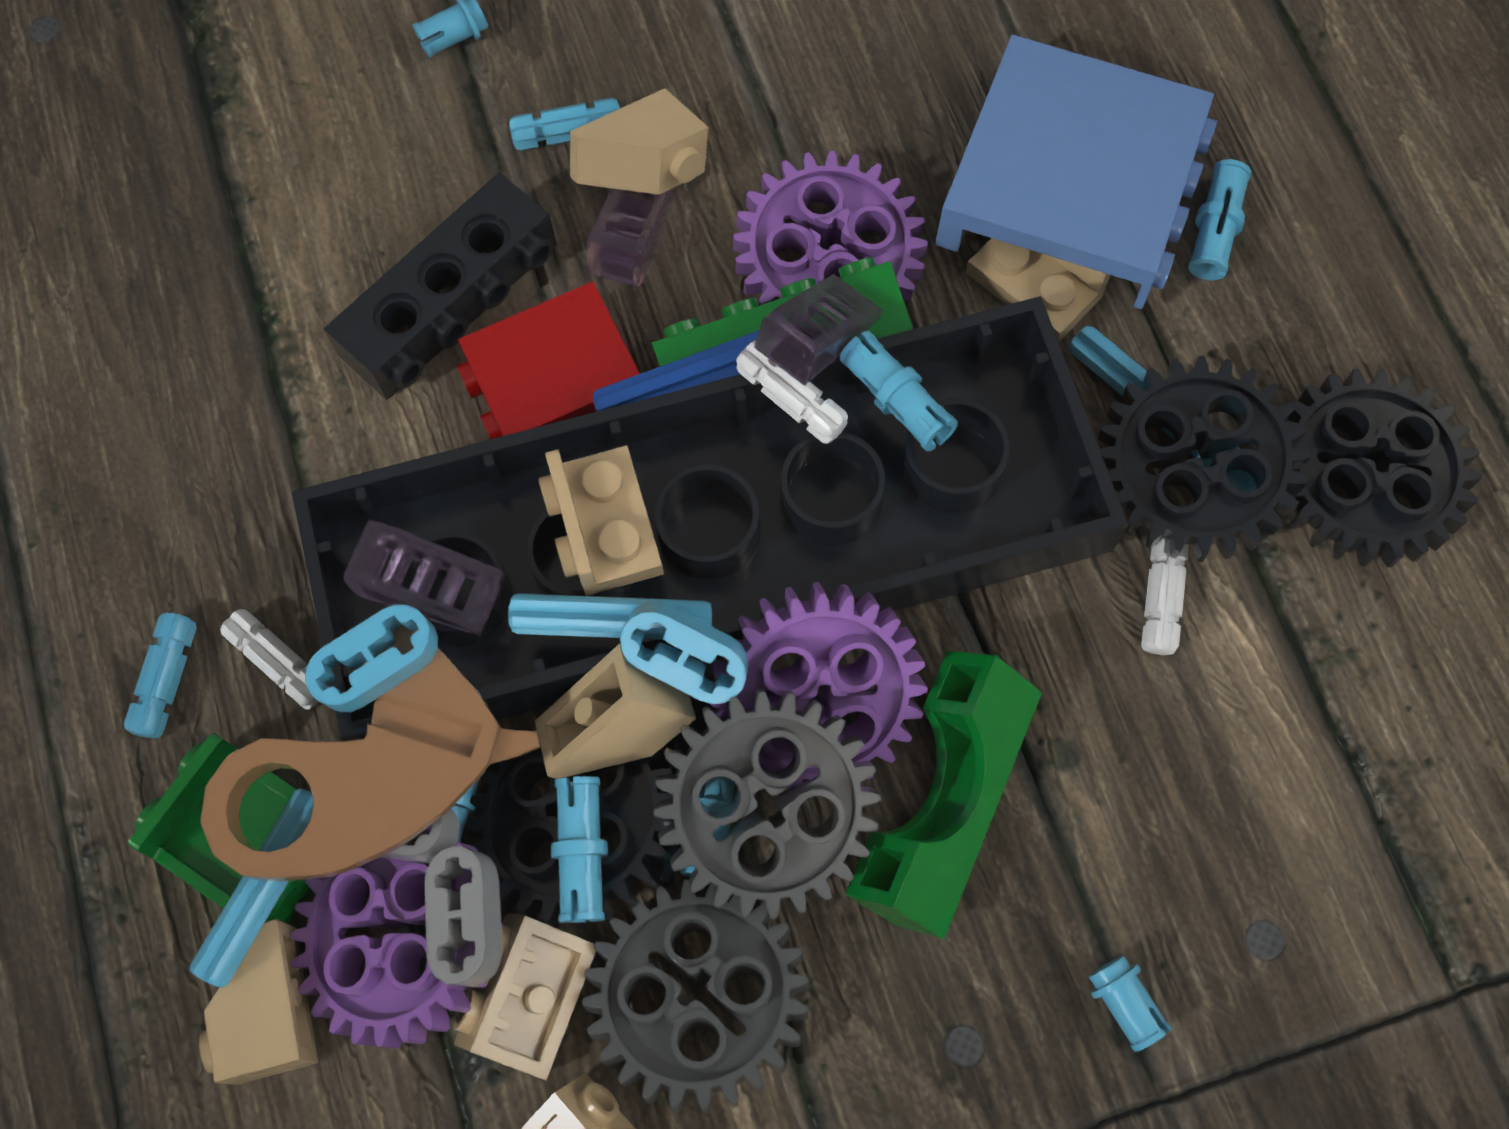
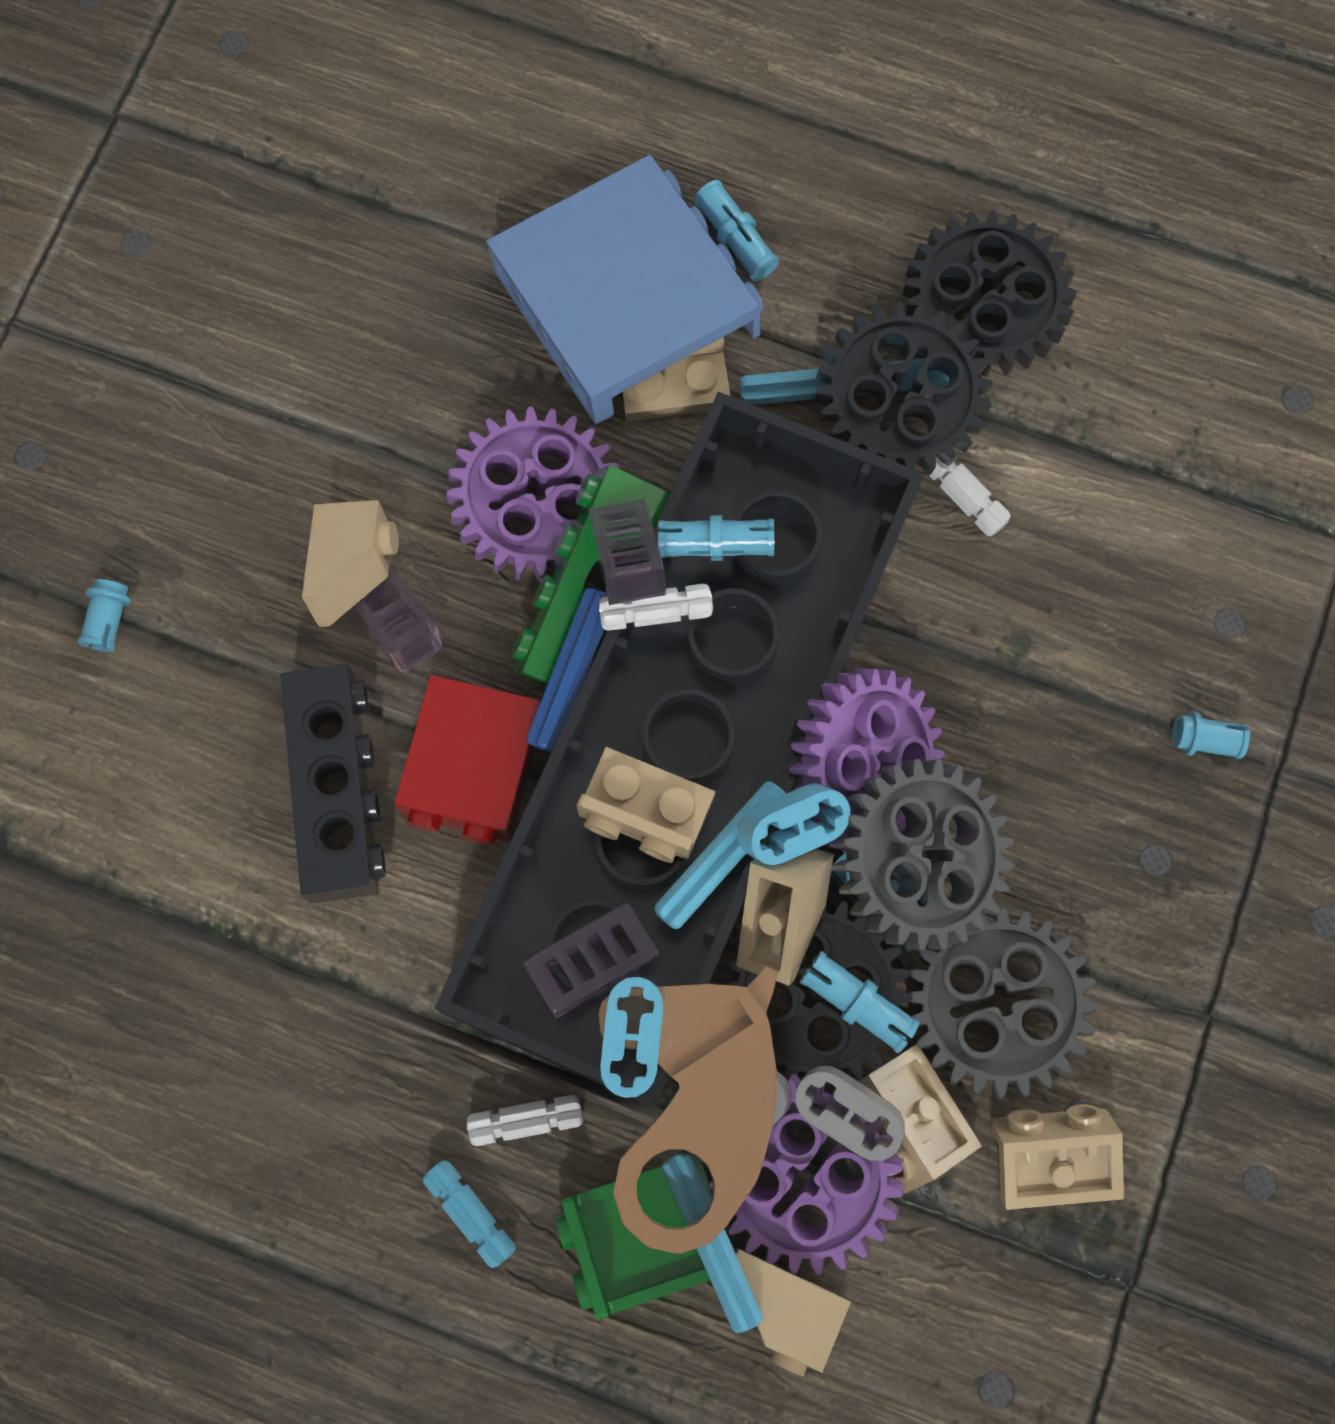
camera: 55 degrees left, 5 degrees up
(556, 123) = (265, 596): medium azure axle -> none
(978, 725) = (971, 685): green arch -> none

